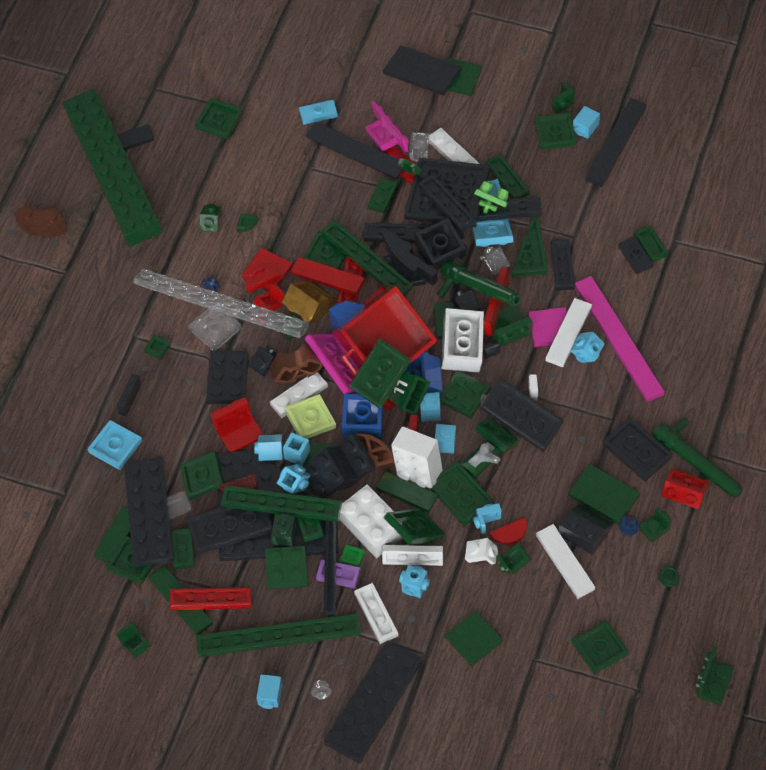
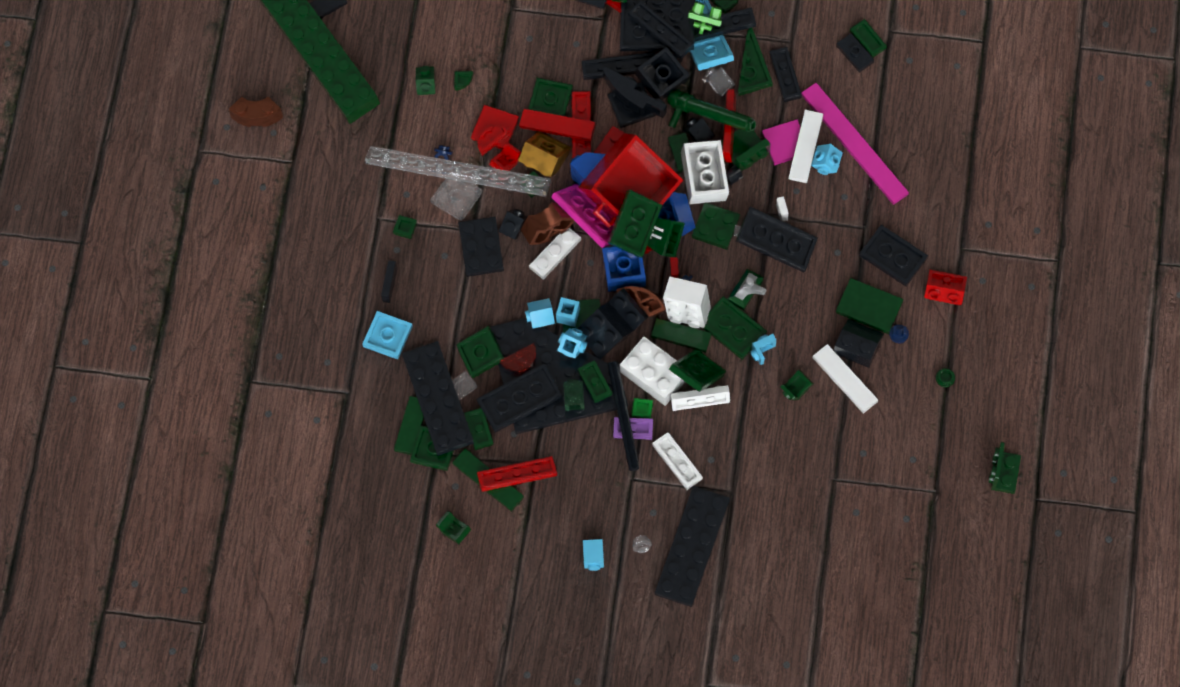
camera: 10 degrees left, 10 degrees up
(236, 425) = (502, 296): red bracket -> none
(278, 635) = (589, 498): dark green plate -> none
(281, 503) = (566, 370): dark green plate -> none
(286, 567) = (582, 430): dark green plate -> none
(310, 417) = (572, 275): yellowish green plate -> none
(365, 258) = (592, 101): dark green plate -> none
(382, 195) = (592, 28): dark green plate -> none
(414, 581) = (705, 429): medium azure brick -> none
(430, 407) = (688, 246): medium azure brick -> none
(446, 438) = (708, 274): medium azure brick -> none
(473, 638) = (773, 469): dark green tile -> none
(481, 550) = (764, 382): white bracket -> none
(497, 435) = (756, 263): dark green plate -> none
(511, 533) = (788, 360): red tile -> none
(600, 647) = (893, 457): dark green tile -> none
(656, 525) = (924, 328): dark green bracket -> none
(673, 441) = (927, 242): dark green cylinder -> none

